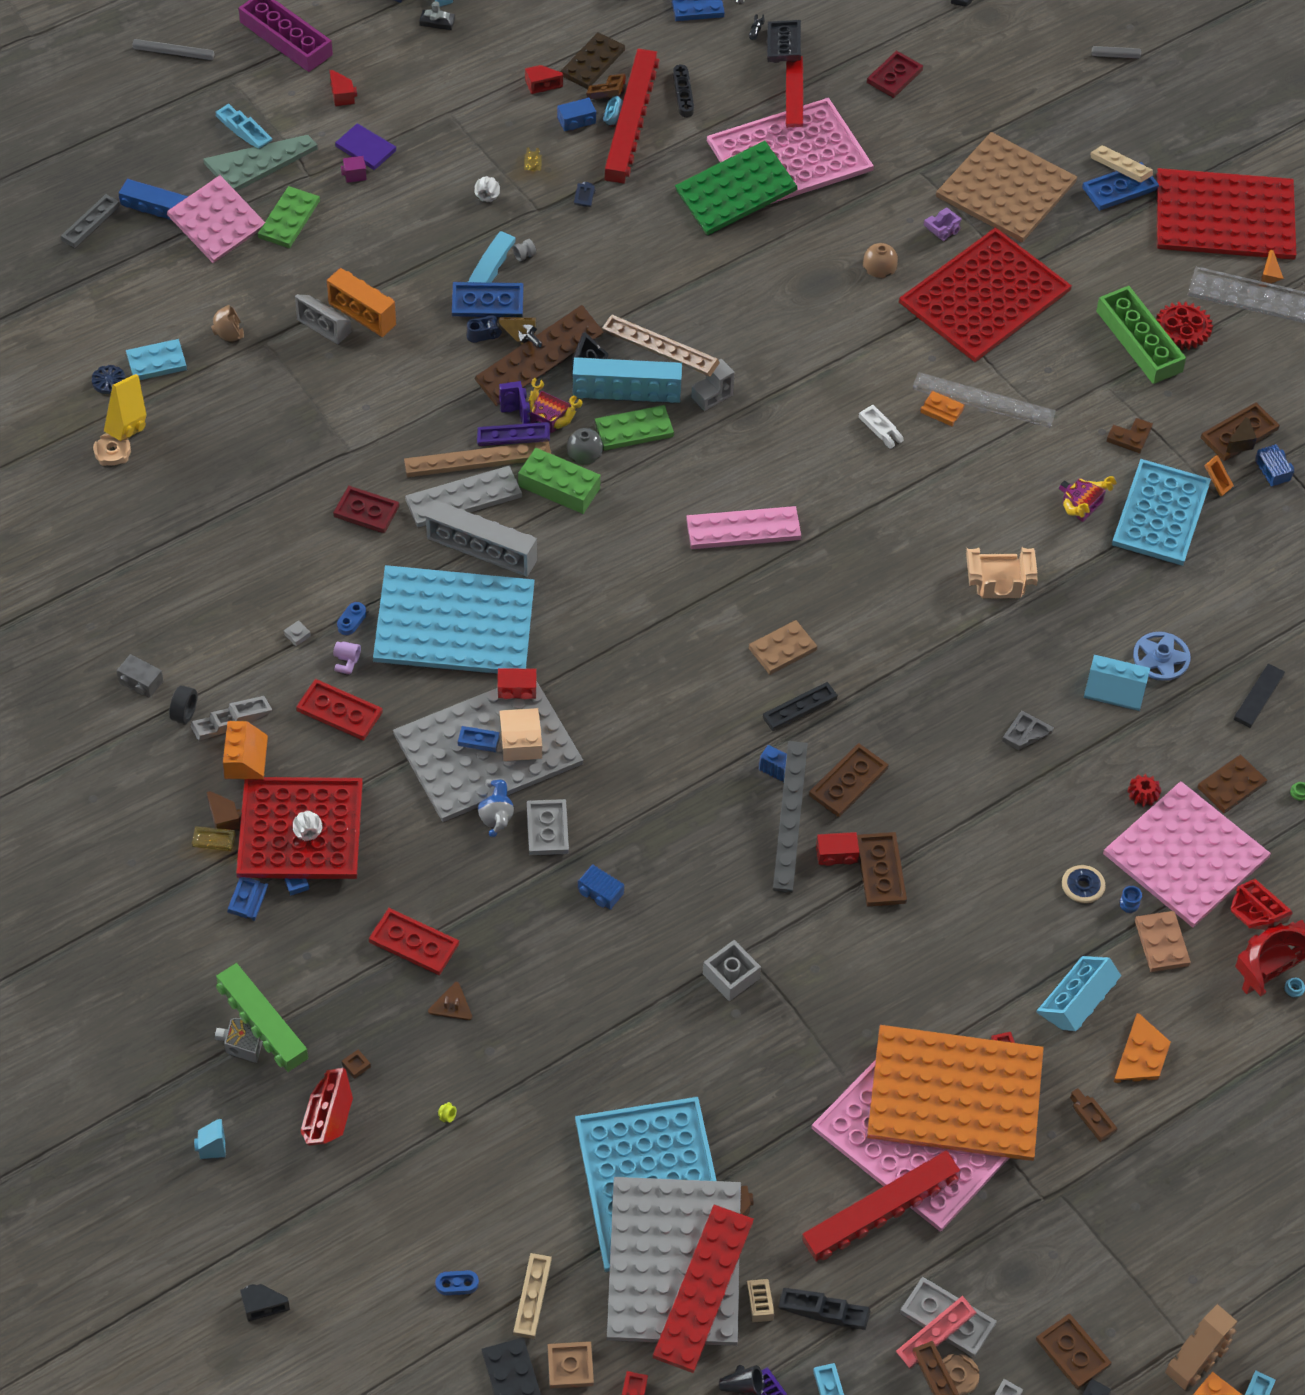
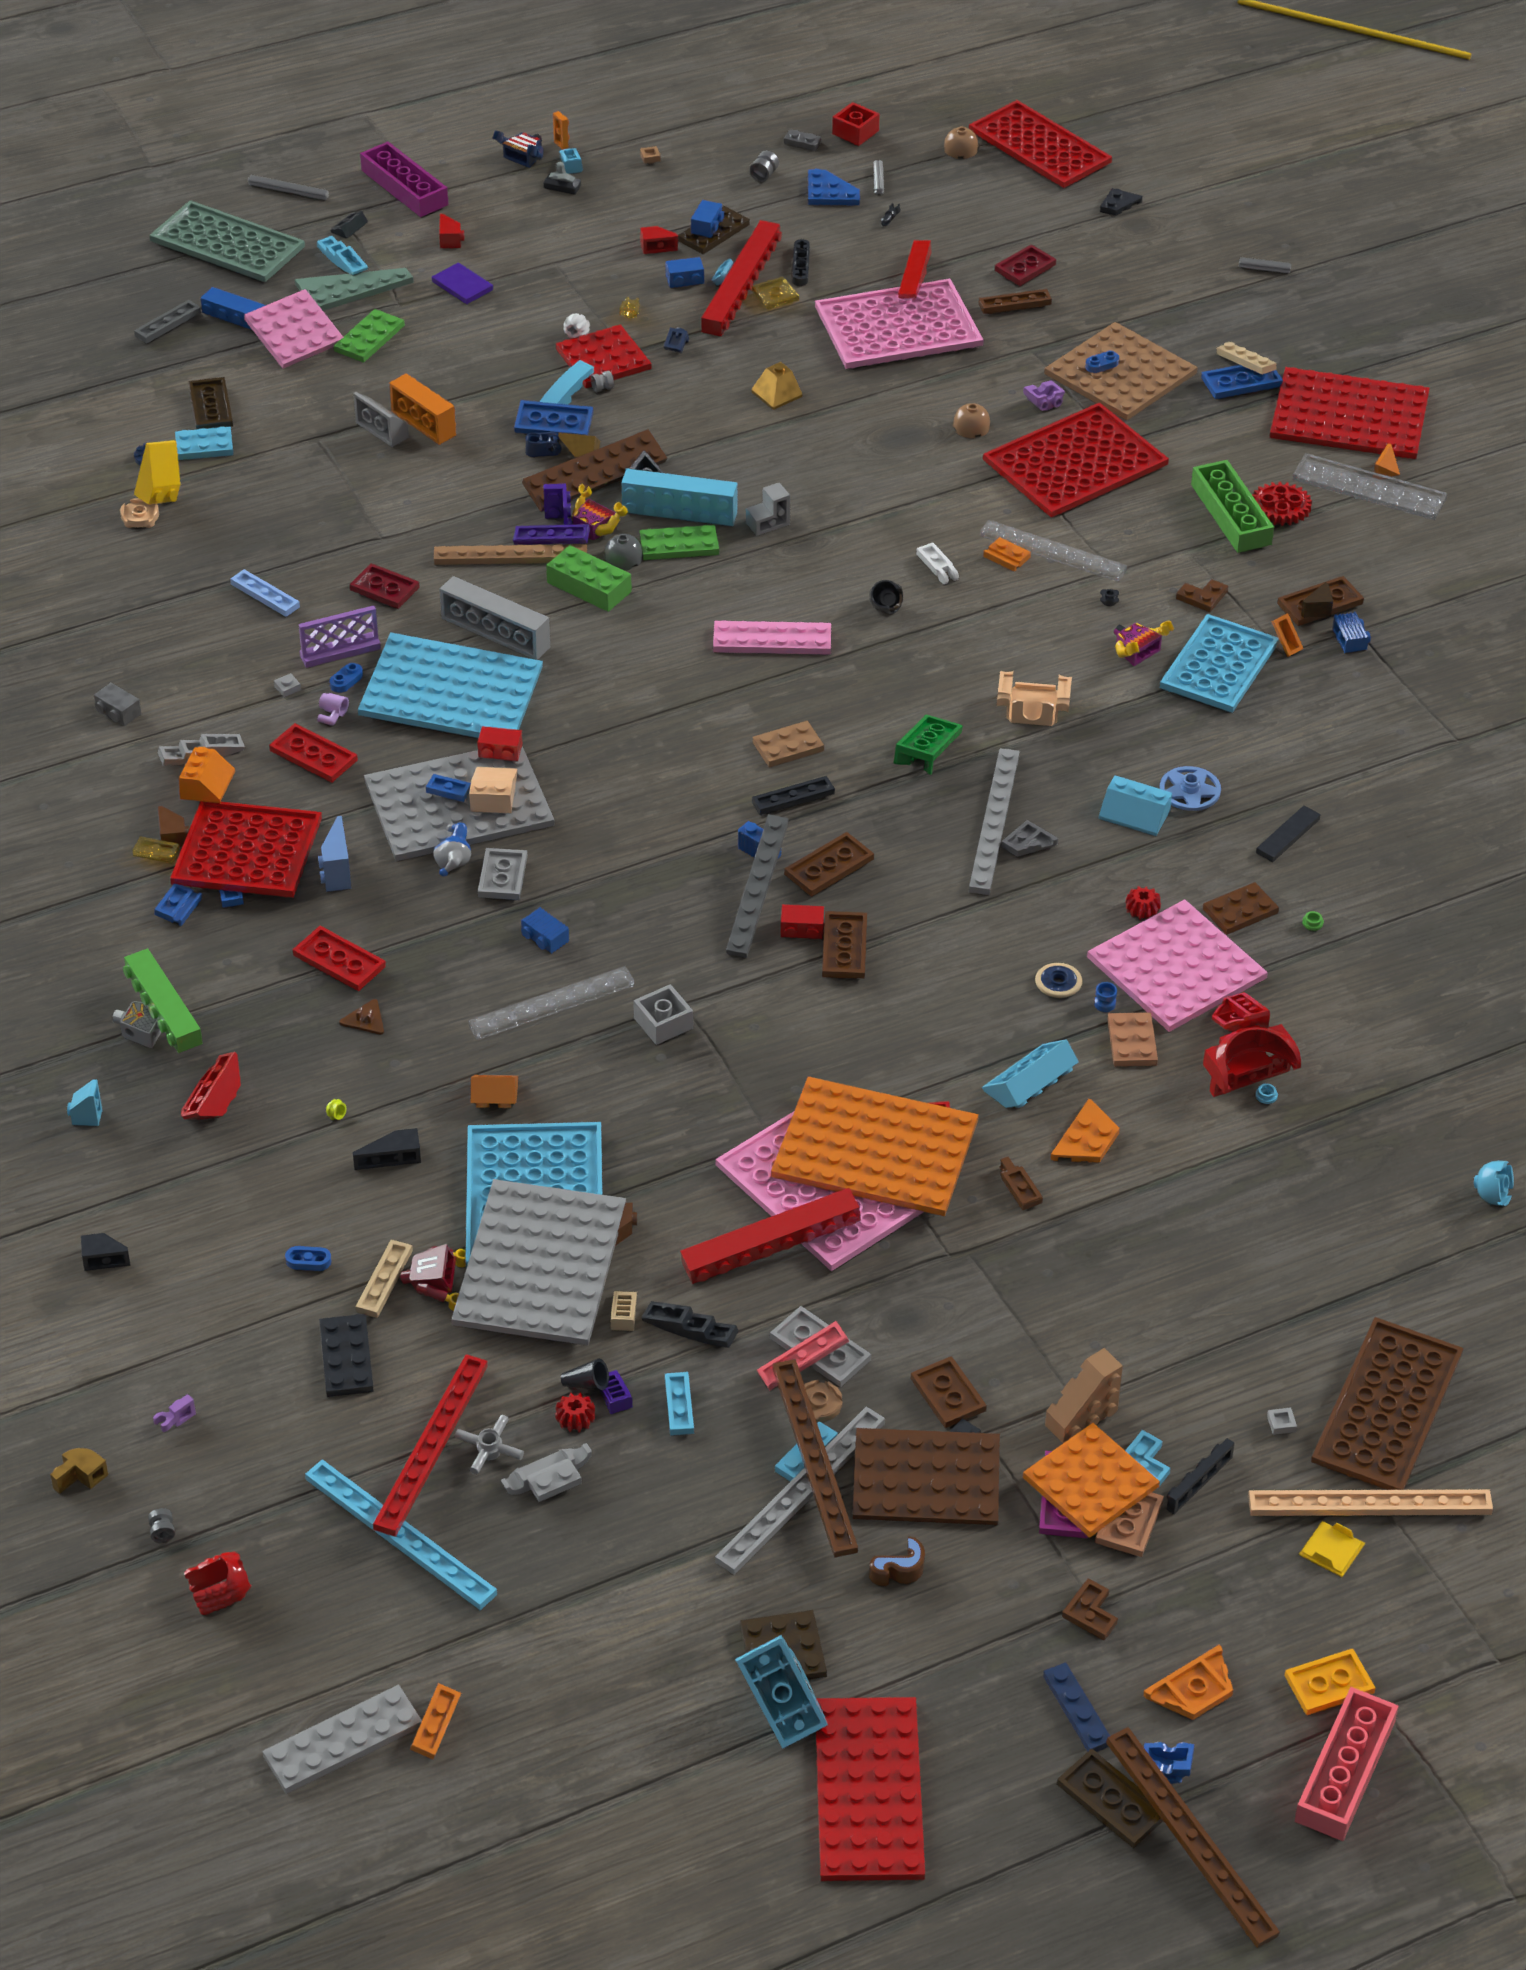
camera: 10 degrees right, 10 degrees down
(128, 119) = (227, 241): none -> sand green plate
(153, 314) = (210, 403): none -> dark brown plate
(183, 704) = (153, 730): black tyre -> none
(227, 324) = (282, 417): medium nougat cylinder -> none
(242, 87) = (350, 224): none -> black slope
(253, 530) = (265, 593): none -> light blue plate
(307, 825) = (251, 842): white piece -> none
(346, 581) = (341, 647): none -> medium lavender fence
(354, 169) = (444, 299): magenta brick -> none
(356, 1064) = (252, 1057): reddish brown plate -> none
(390, 835) = (335, 859): none -> medium blue slope
(466, 494) = (504, 581): light grey plate -> none
(512, 1151) = (393, 1149): none -> black slope
(520, 214) = (605, 351): none -> red plate
(530, 336) = (589, 443): black bar -> none
(570, 1365) = (408, 1343): medium nougat plate -> none
(579, 1287) = (434, 1273): none -> dark red torso
(587, 52) = (706, 218): none -> blue brick
(591, 1072) = (494, 1089): none -> orange slope
(612, 87) = (728, 251): reddish brown plate -> none
(622, 966) = (551, 1003): none -> clear plate
(661, 345) = (720, 468): medium nougat plate -> none
(667, 129) = (775, 293): none -> clear yellow plate
(691, 239) = (777, 386): none -> pearl gold slope
(703, 1288) = (561, 1285): red plate -> none
(736, 187) = (835, 345): green plate -> none
(784, 41) = (914, 226): black plate -> none
(842, 472) = (886, 596): none -> black piece
(893, 117) = (1015, 301): none -> reddish brown plate
(913, 632) = (926, 741): none -> green plate
(989, 181) = (1102, 362): none -> blue plate
(990, 713) = (994, 822): none -> light grey plate
(1046, 447) = (1109, 597): none -> black plate

